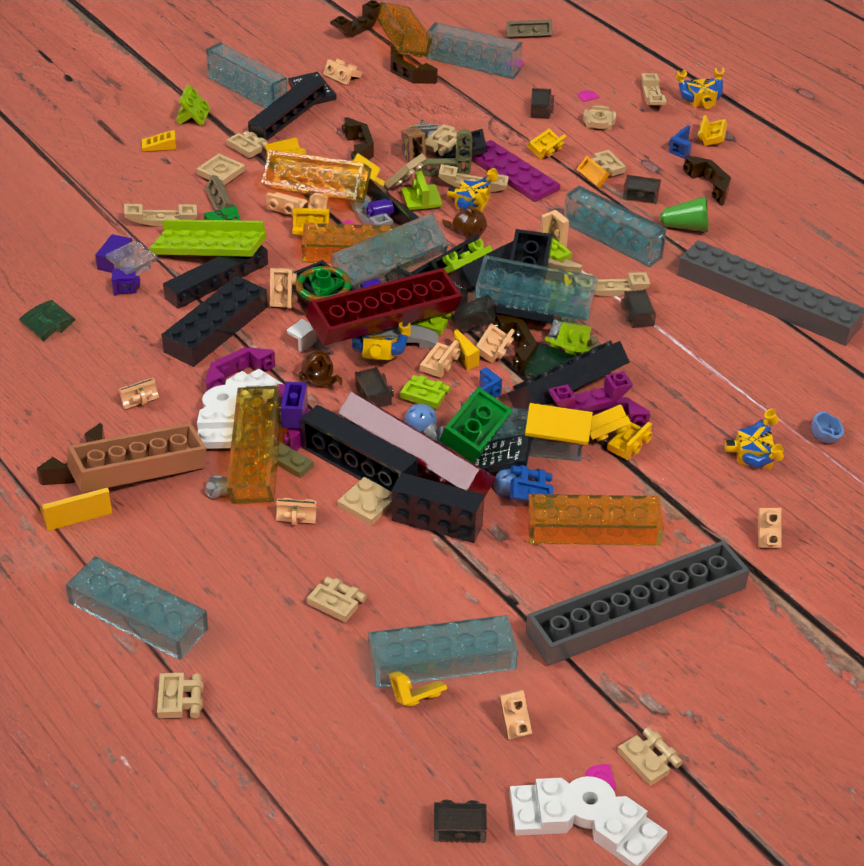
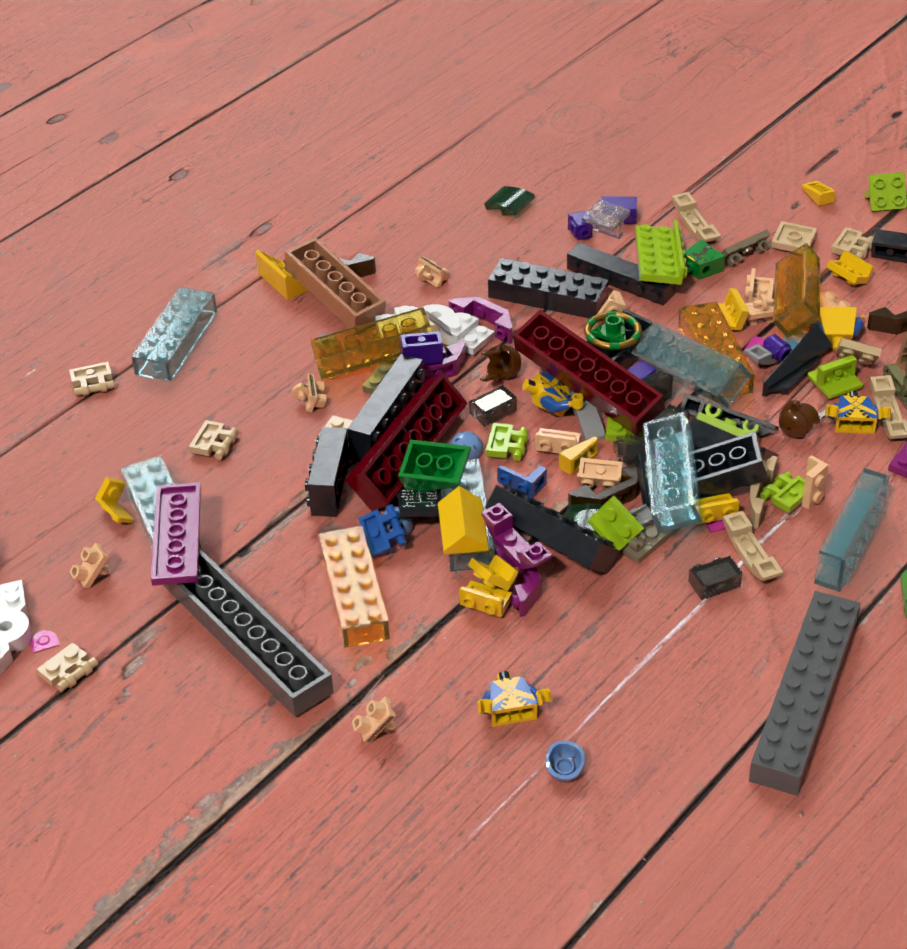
camera: 80 degrees right, 0 degrees up
(512, 622) = (176, 534): none -> plate

